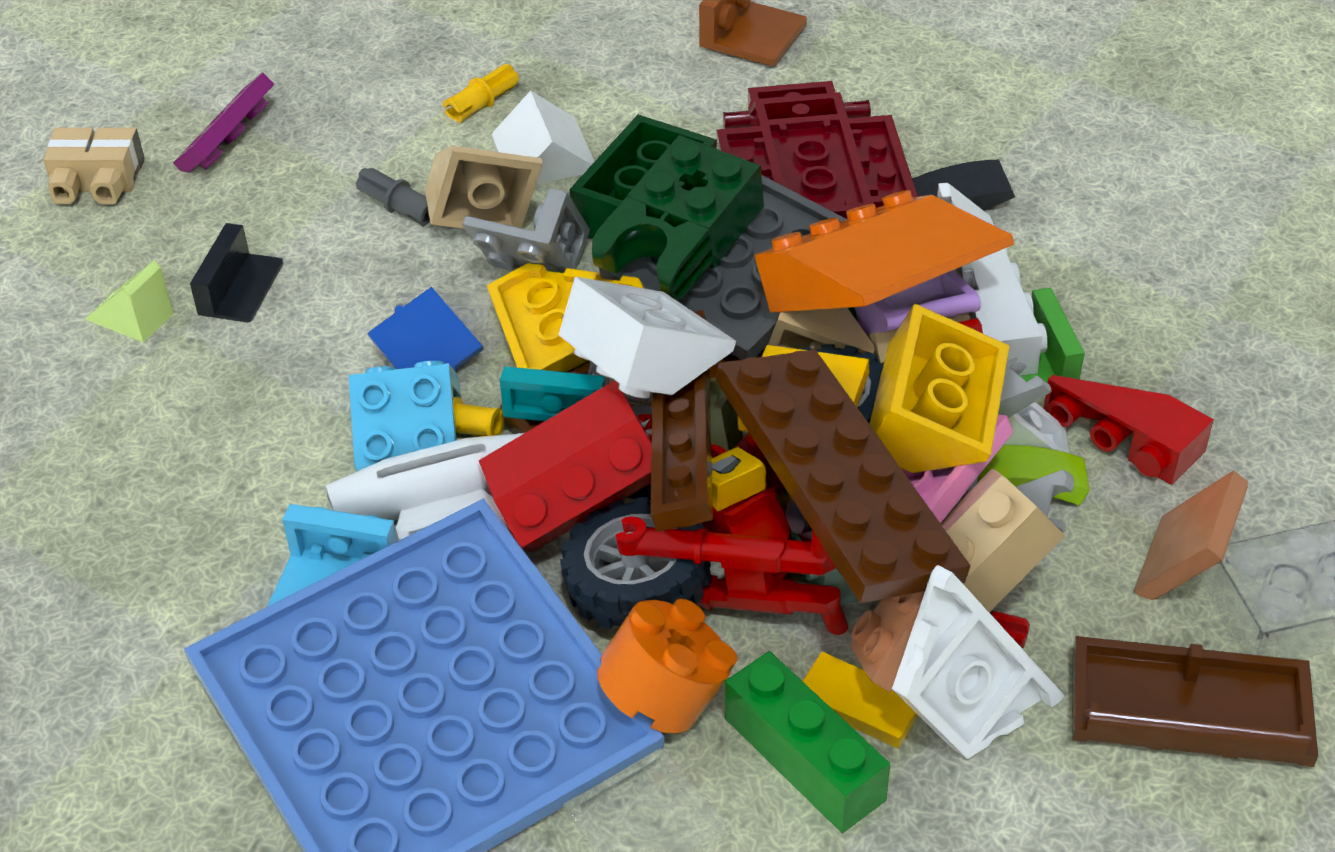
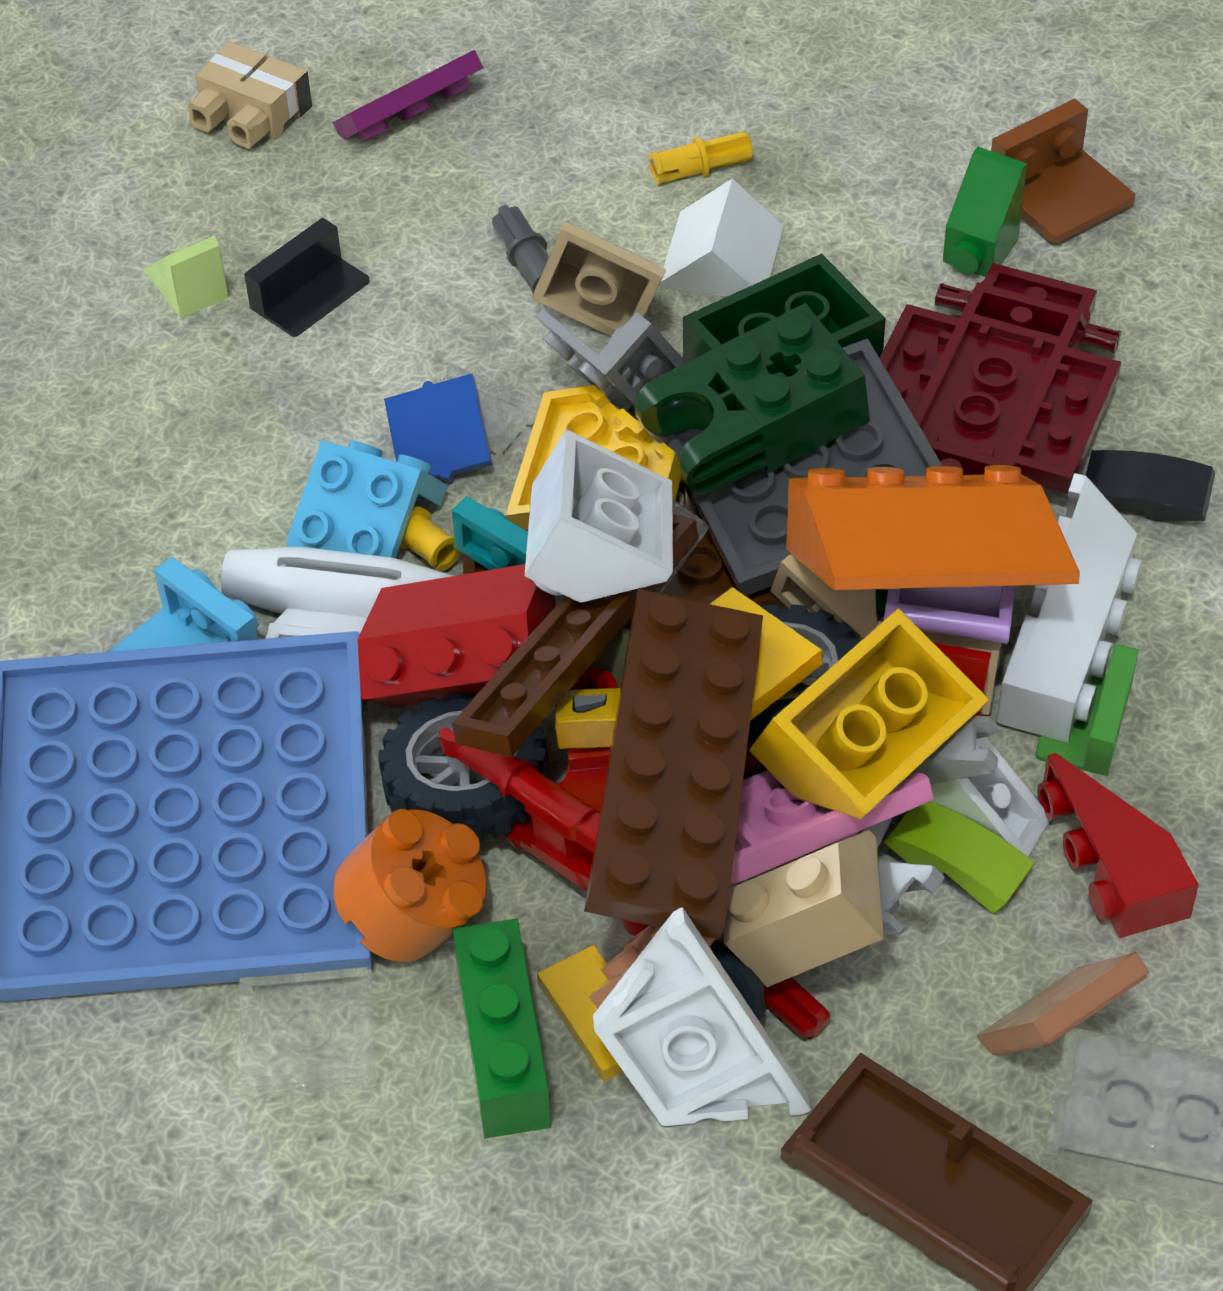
camera: 30 degrees right, 5 degrees up
(725, 54) = (985, 213): none -> green slope

